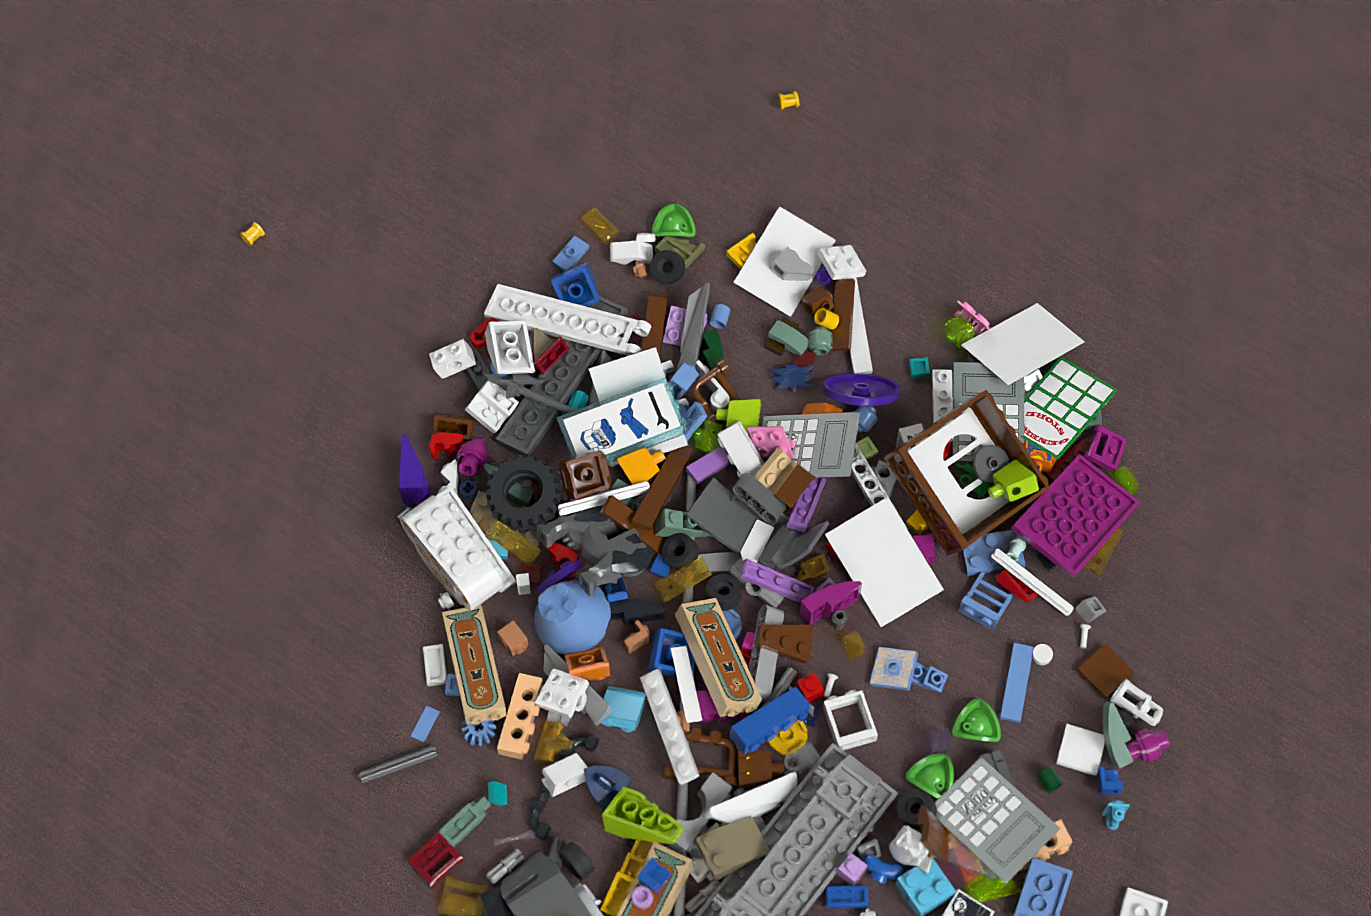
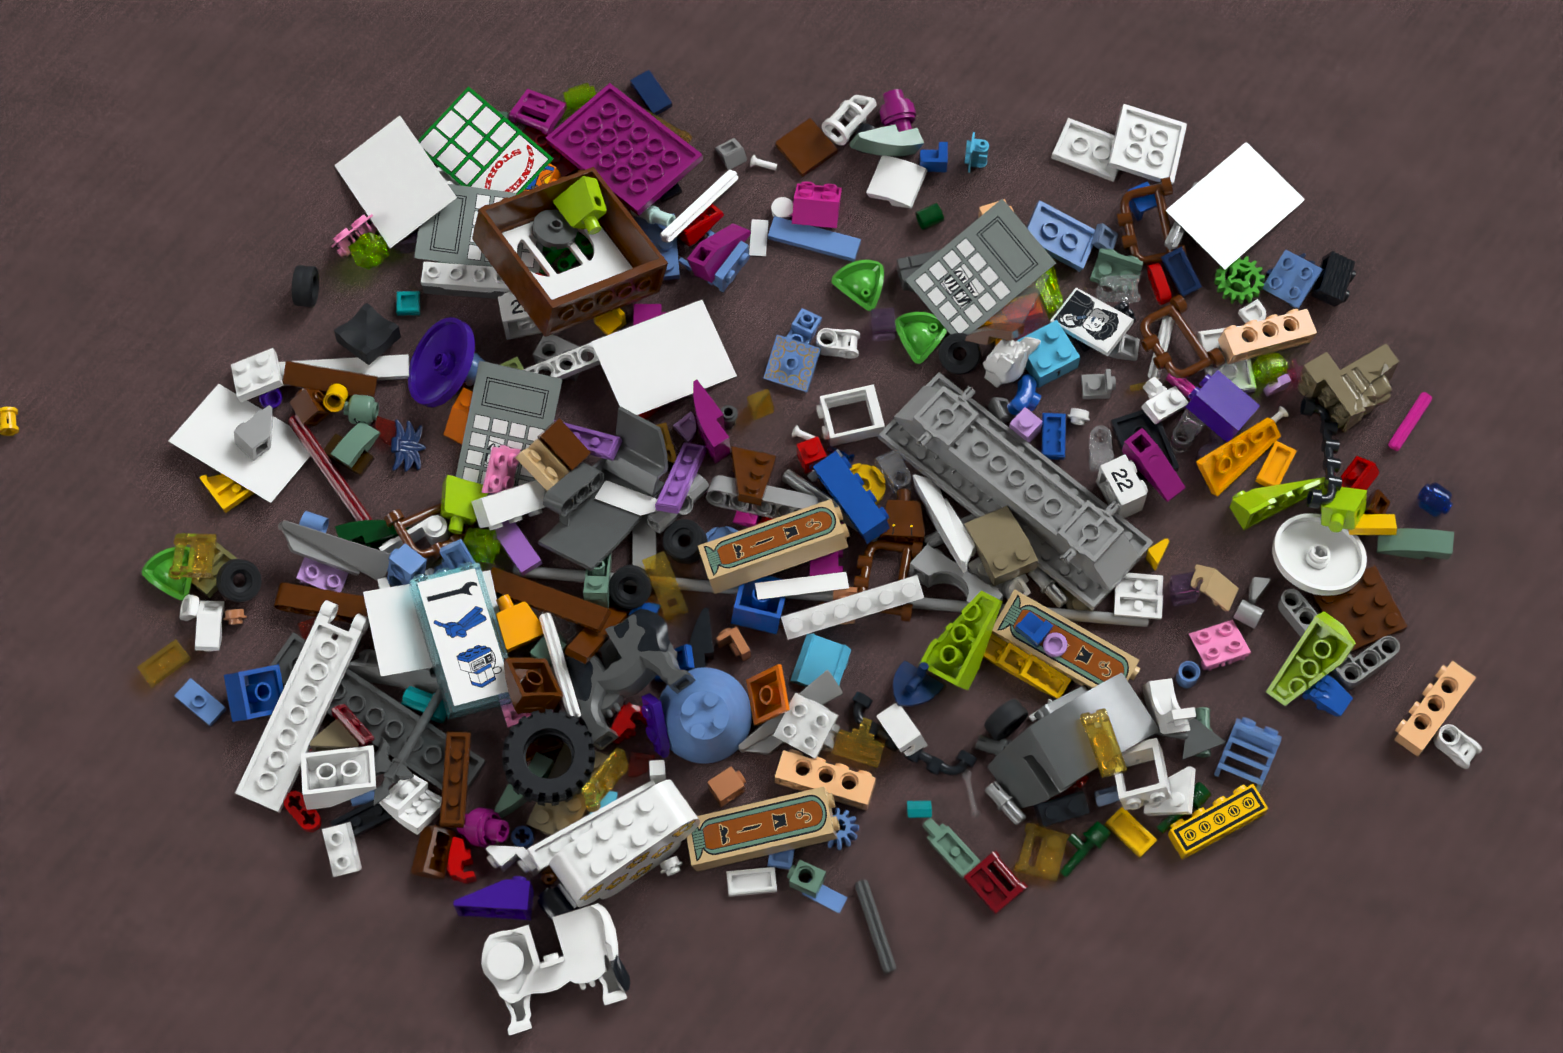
camera: 85 degrees left, 5 degrees up
(364, 534) = (588, 955): none -> white animal
(436, 714) = (811, 888): none -> sand green brick
(510, 432) = (455, 779): none -> reddish brown tile
(684, 237) = (200, 557): none -> clear yellow plate
(763, 325) = (328, 469): none -> dark red axle
(884, 337) = (367, 334): none -> black brick
(918, 709) = (839, 345): none -> white piece
(921, 287) = (305, 286): none -> black tyre
(987, 593) = (714, 251): none -> magenta slope
(1008, 637) = (758, 237): none -> white sticker
(1048, 681) = (816, 205): none -> dark pink slope
(1139, 539) = (651, 93): none -> dark blue tile

